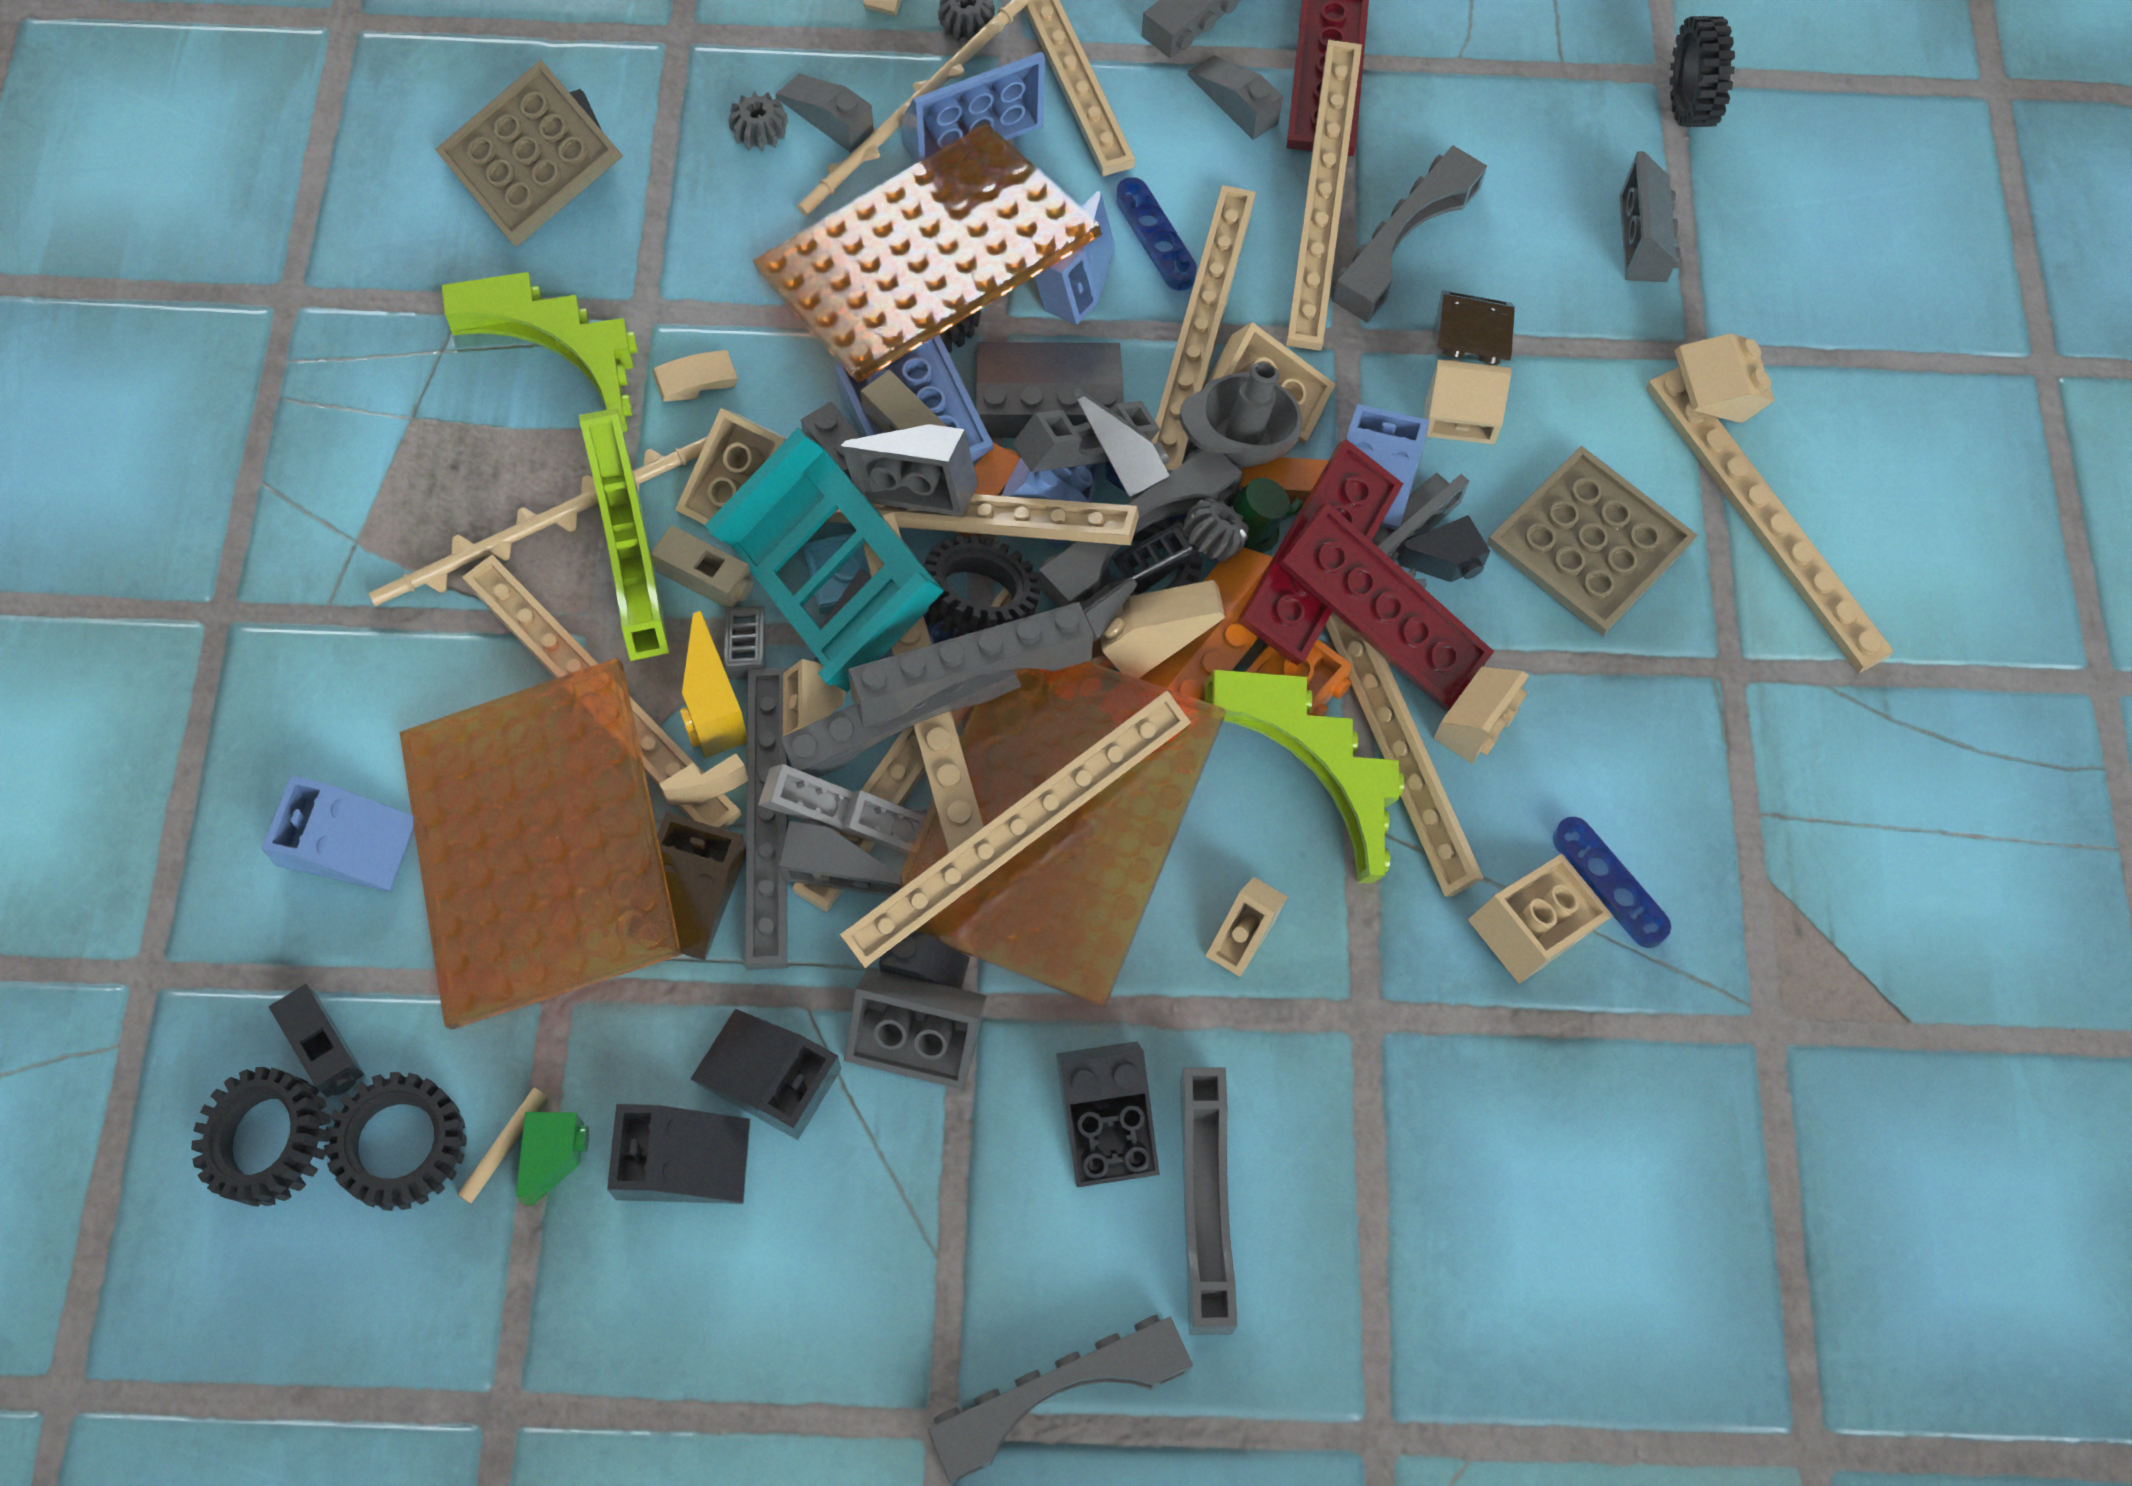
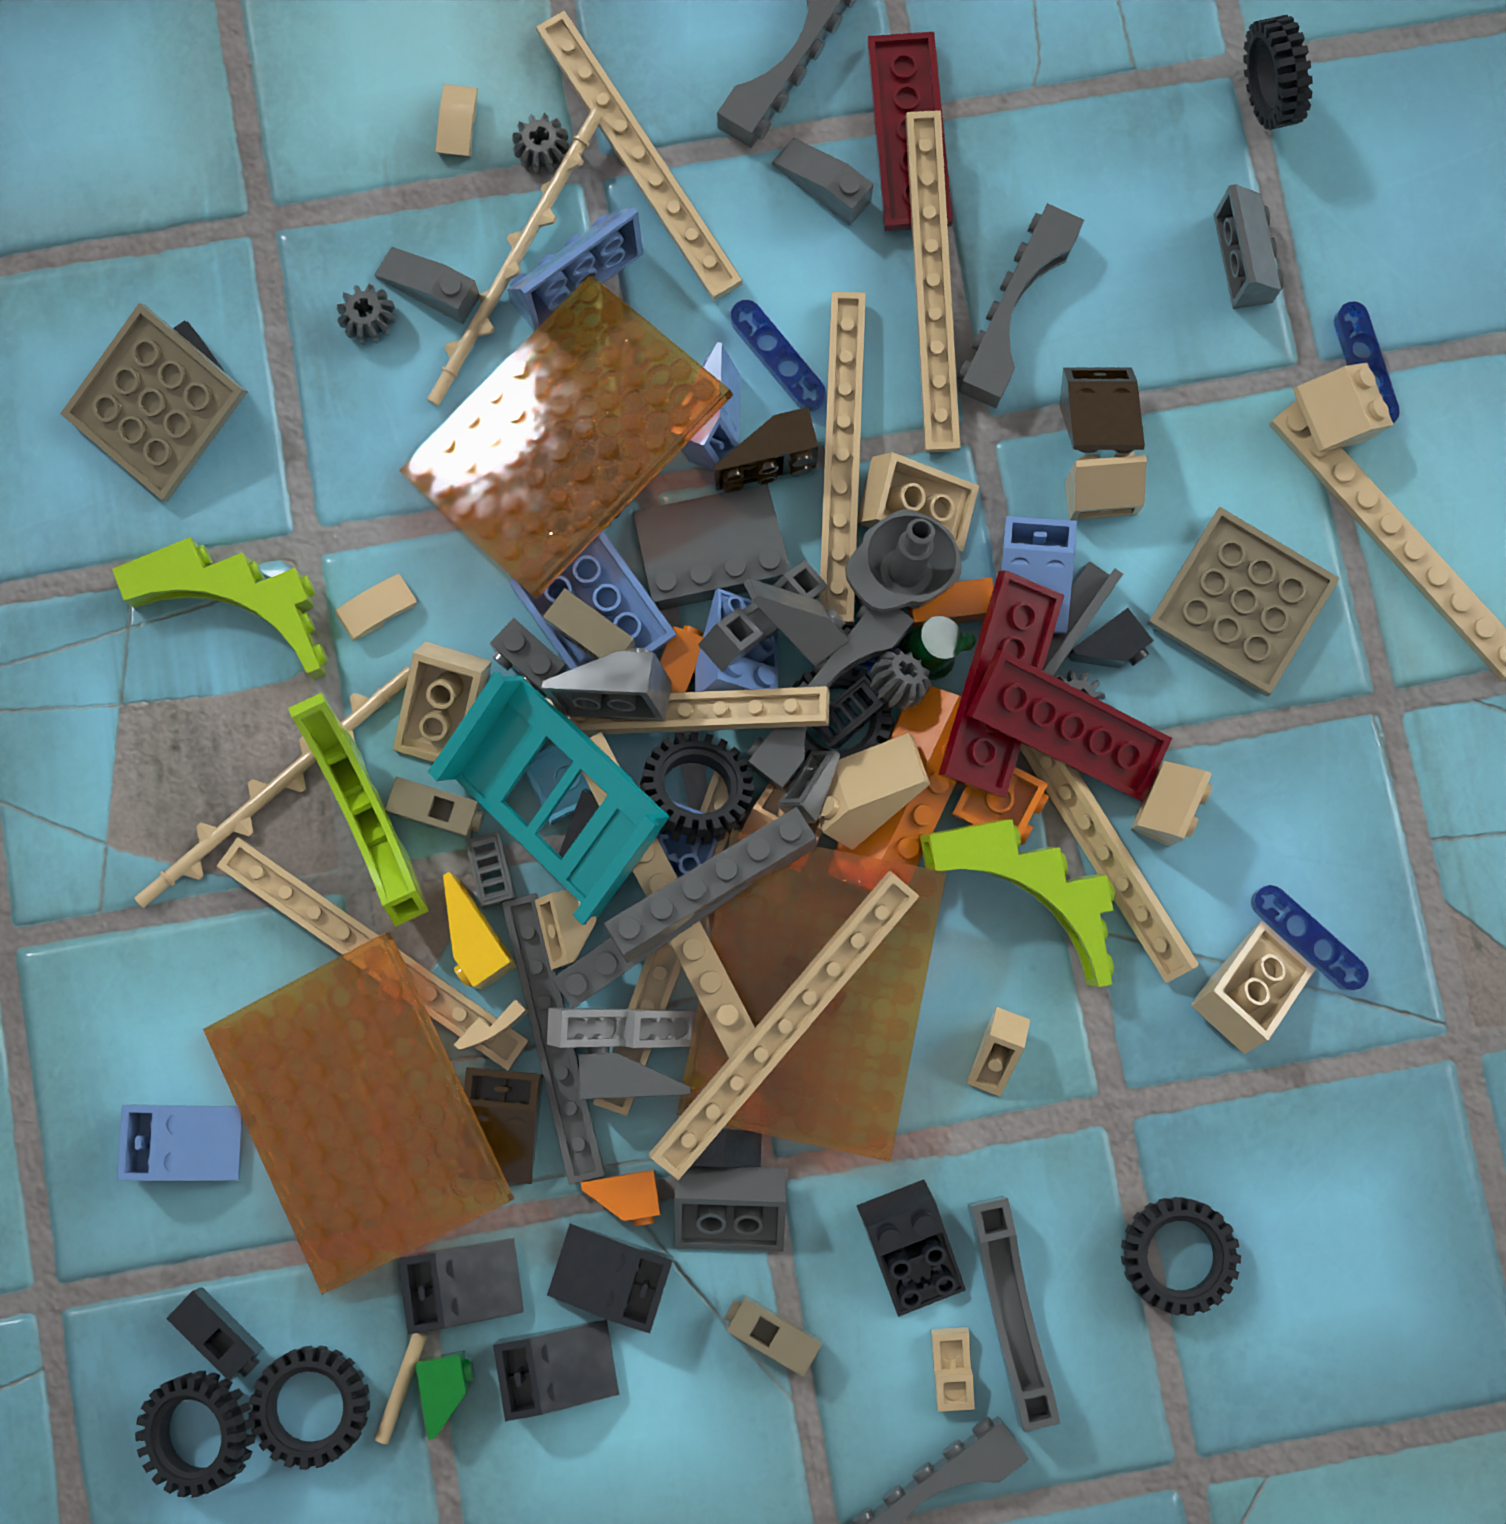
camera: 10 degrees left, 15 degrees up
(597, 1043) = (460, 1285): none -> black slope
(806, 989) = (627, 1195): none -> orange slope
(930, 1171) = (772, 1334): none -> dark tan brick
(1126, 306) = (775, 449): none -> dark brown slope
(1126, 1256) = (952, 1369): none -> tan slope
(1440, 1145) = (1223, 1263): none -> black tyre
(1758, 324) = (1368, 337): none -> clear blue beam

